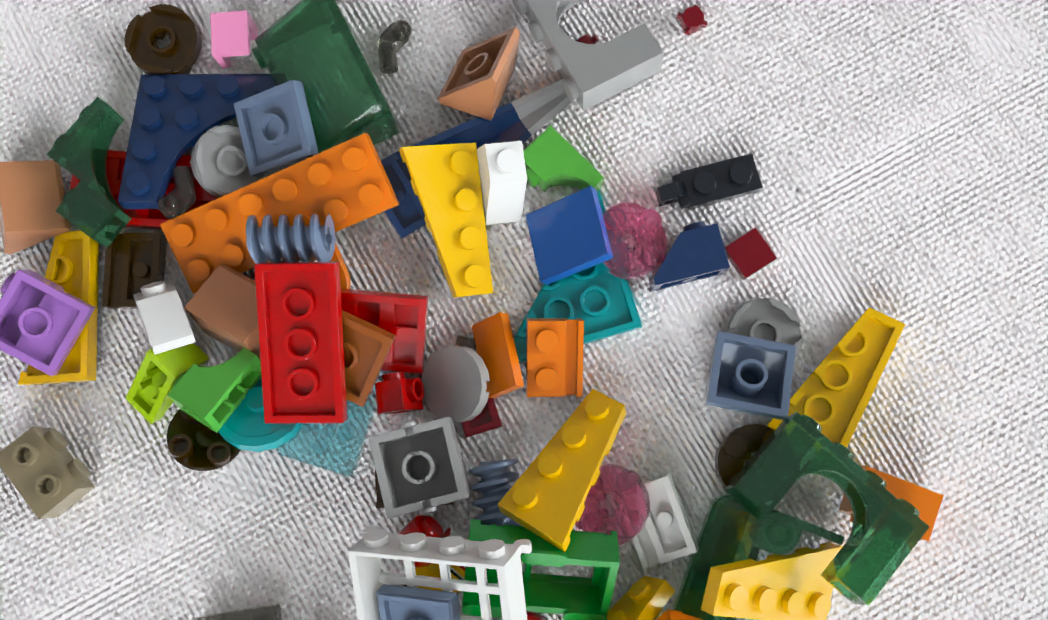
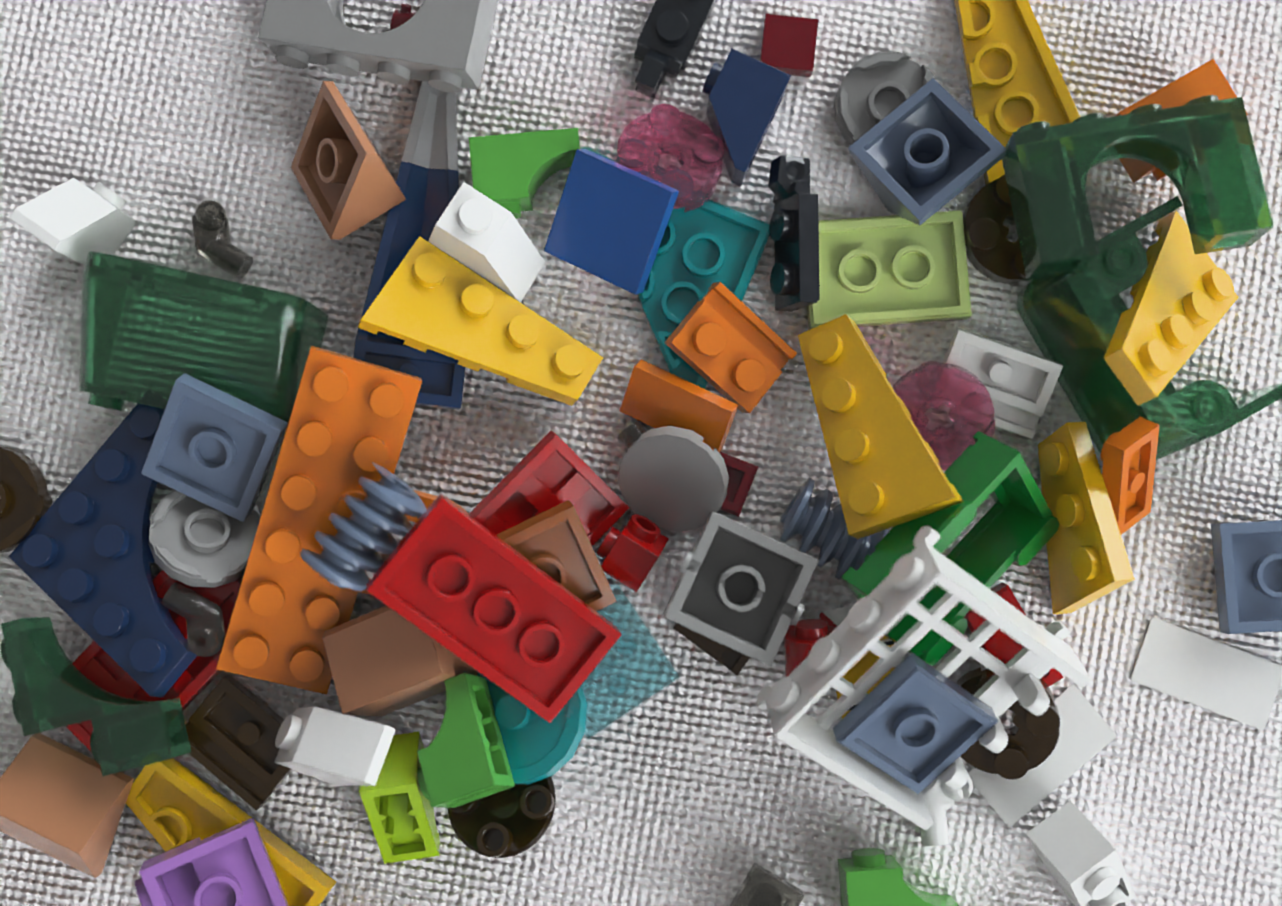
camera: 55 degrees left, 5 degrees up
(231, 35) = (52, 413): bright pink panel -> none
(647, 340) = (795, 235): none -> black hinge
(670, 409) = (892, 270): none -> yellowish green tile

